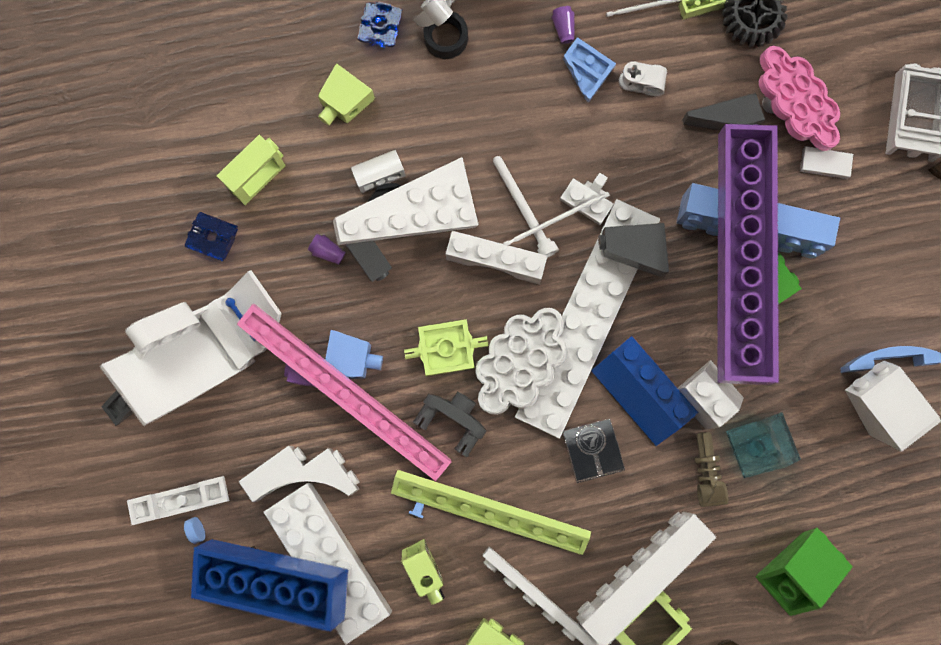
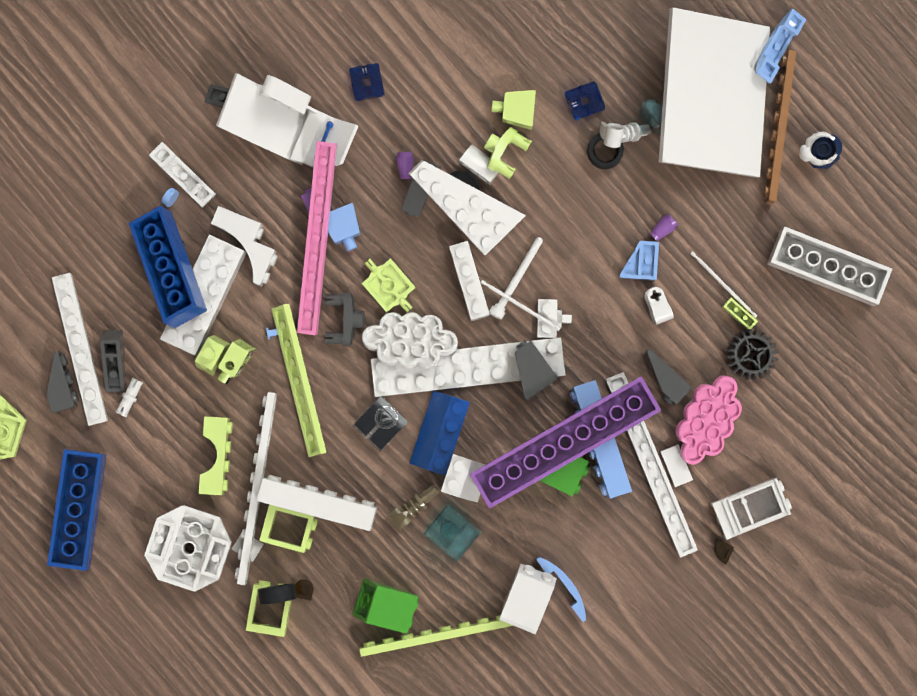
camera: 50 degrees right, 5 degrees up
(252, 169) = (427, 81): yellowish green window -> none
(371, 139) = (498, 145): none -> yellowish green connector
(400, 593) = (211, 354): none -> yellowish green torso
(833, 190) = (658, 480): none -> white plate
(868, 542) = (428, 636): none -> yellowish green plate

